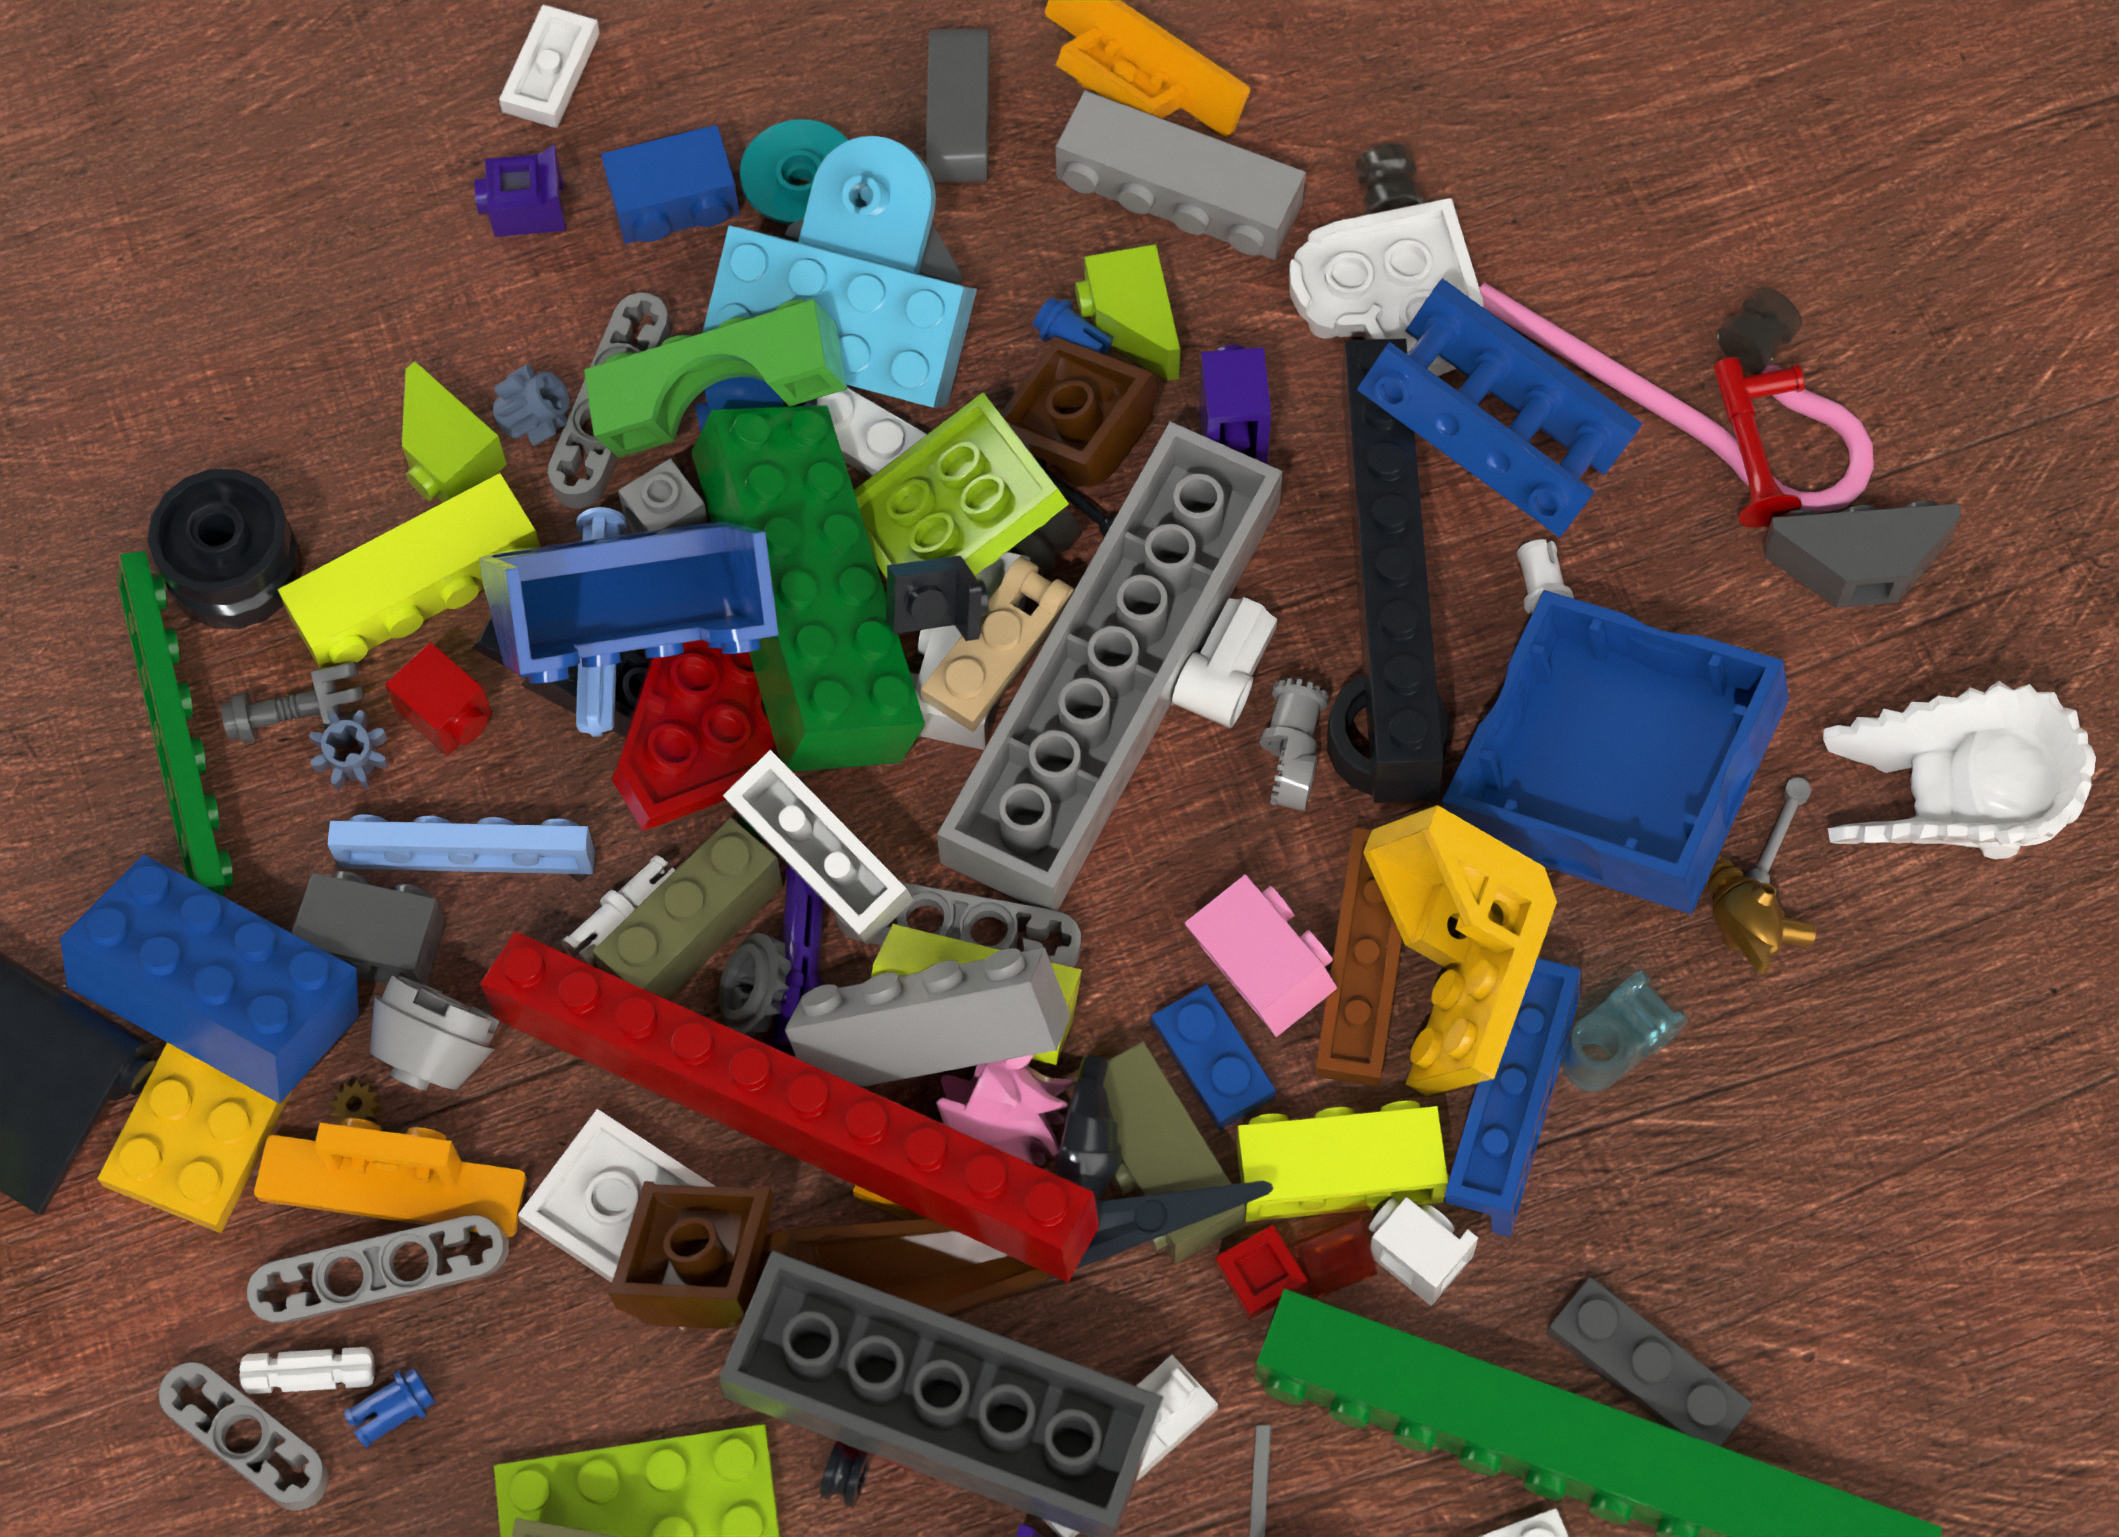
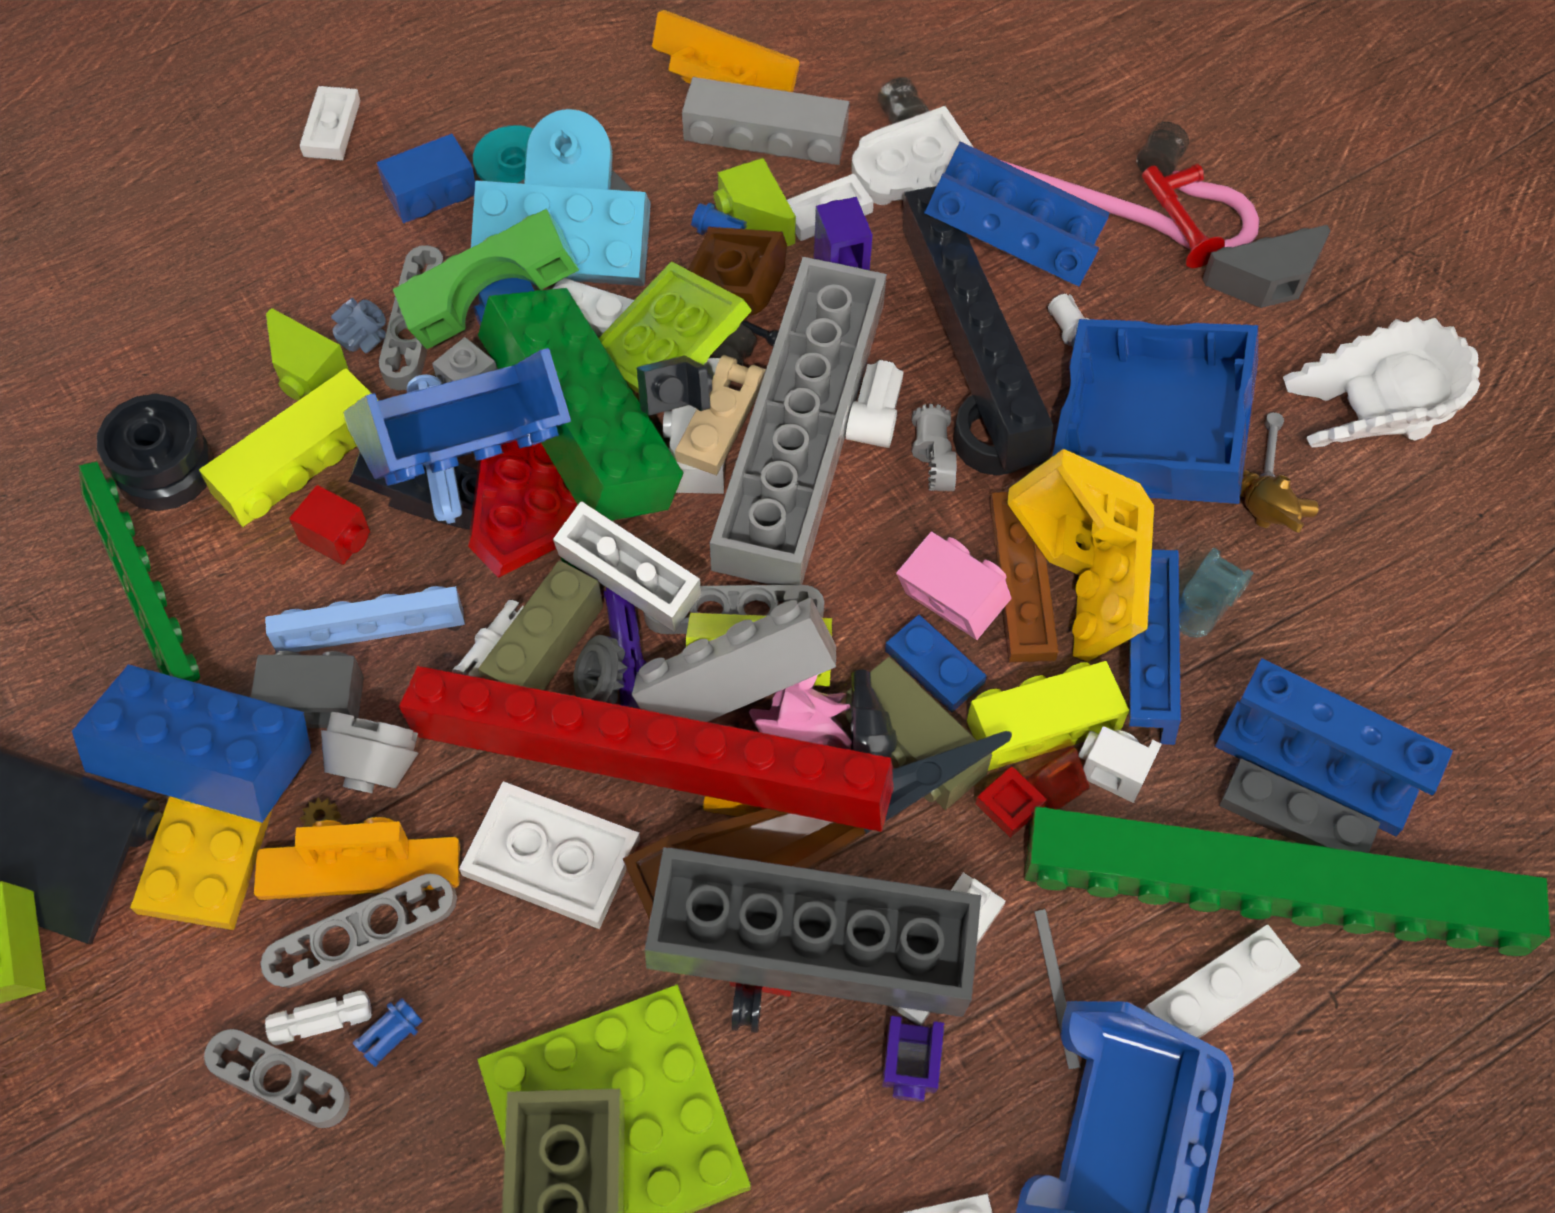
camera: 15 degrees left, 5 degrees down
(244, 718) = (189, 563): dark grey hinge -> none
(342, 734) = (278, 578): sand blue gear -> none
(522, 194) = (327, 200): dark purple window -> none
(692, 1255) = (599, 869): reddish brown slope -> none
(958, 105) = (611, 100): dark grey beam -> none
(1251, 322) = (805, 204): none -> white plate
(1703, 1290) = (1332, 746): none -> blue fence

